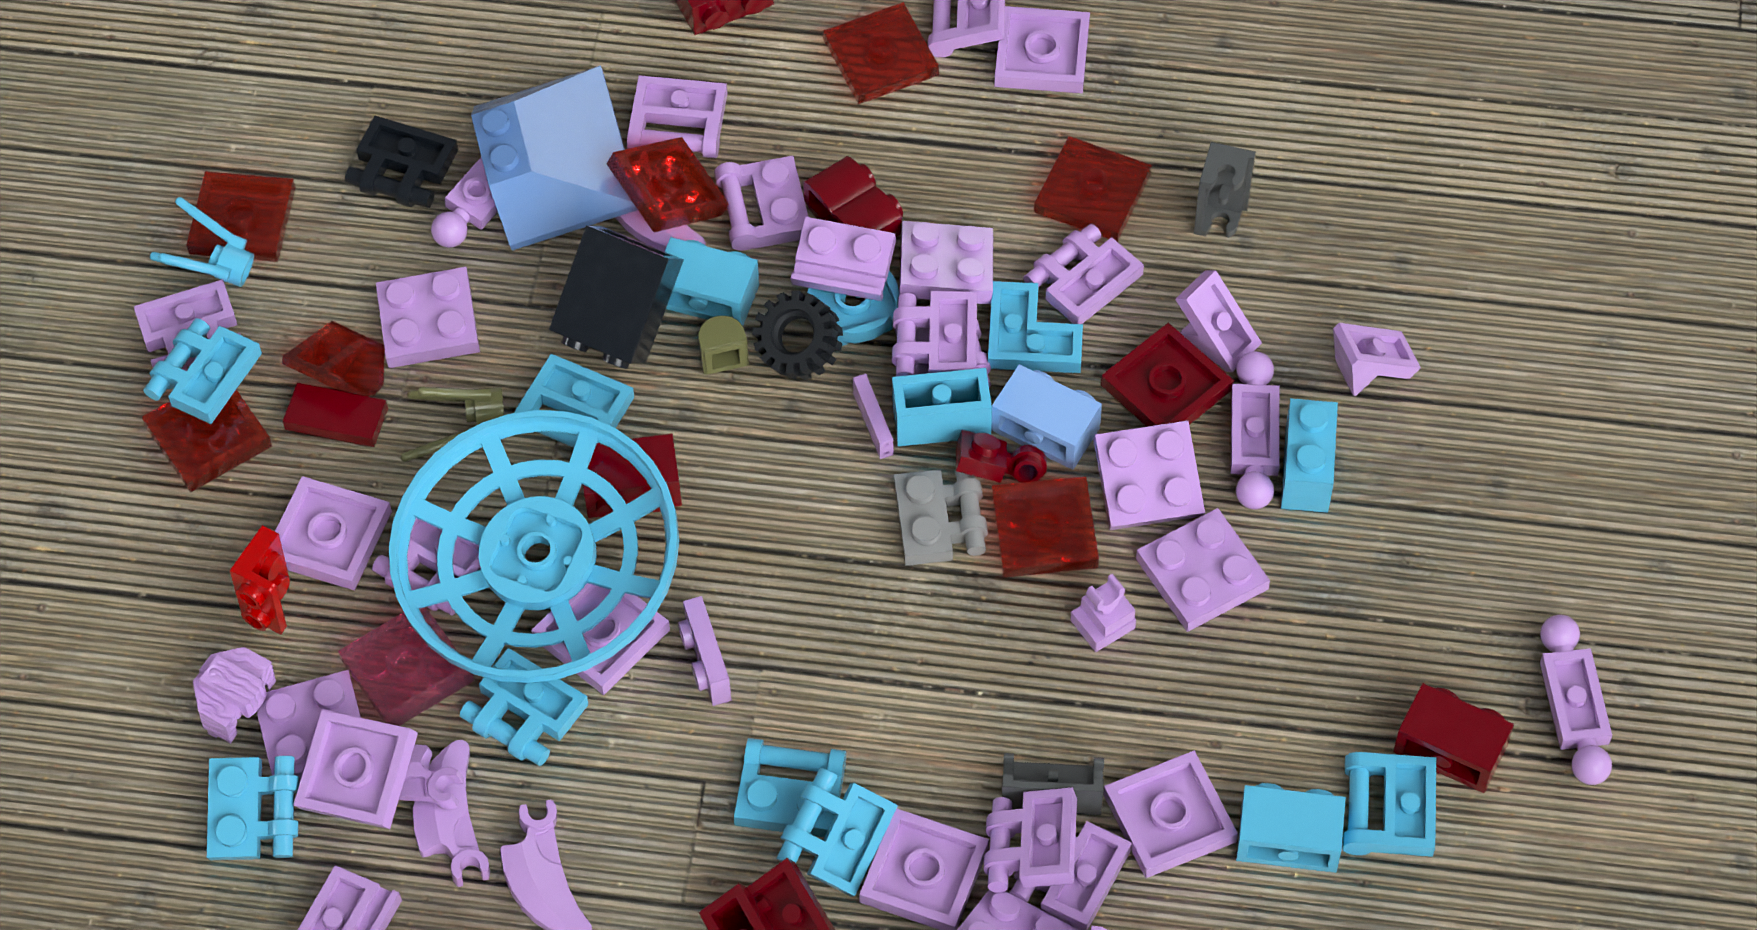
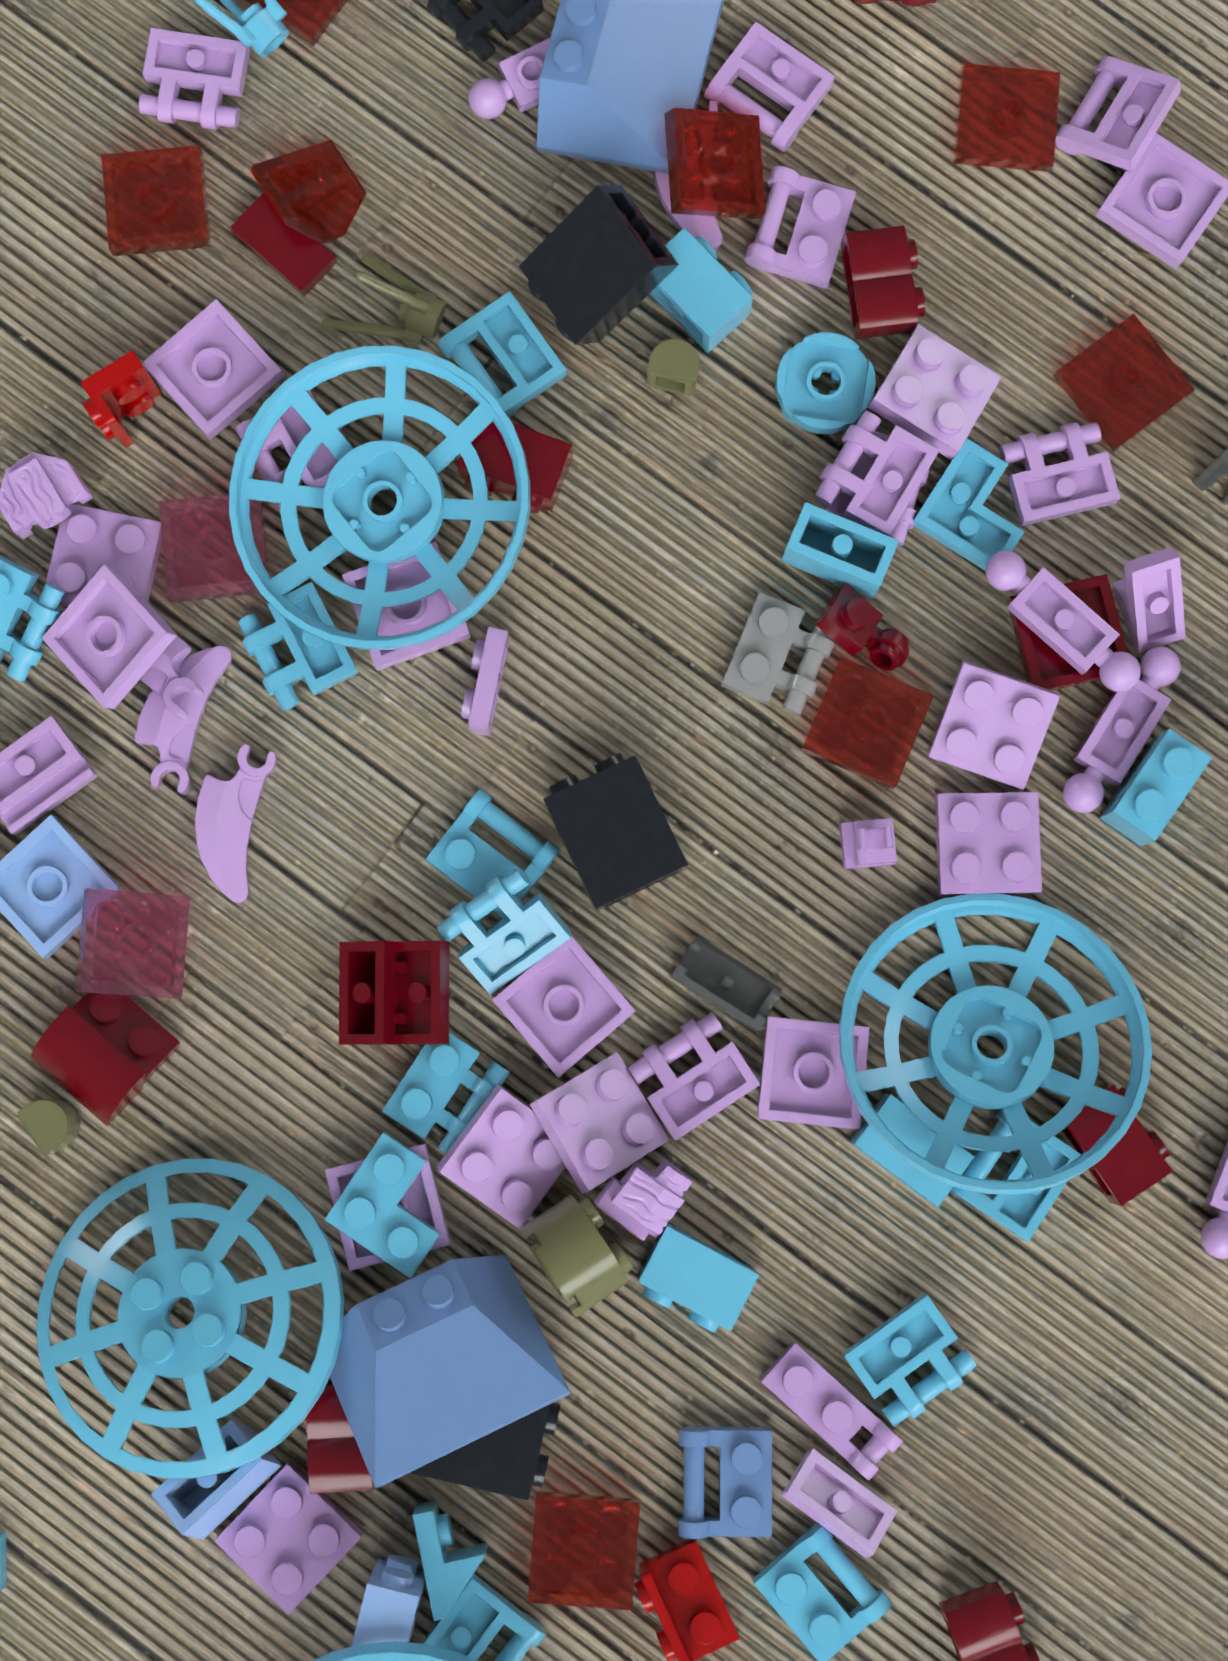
camera: 25 degrees right, 25 degrees up
(213, 375) = (181, 148): medium azure plate -> none
(427, 317) = (420, 184): lavender plate -> none
(779, 316) = (720, 393): black tyre -> none
(843, 258) = (835, 340): lavender plate -> none
(873, 416) = (774, 518): lavender piece -> none
(885, 712) = (614, 831): none -> black brick
(1046, 415) = (935, 609): light blue brick -> none
(1047, 839) = (682, 1047): lavender plate -> none
(1154, 366) = (1063, 621): none -> lavender plate
(1300, 685) = (1010, 1018): none -> medium azure dish

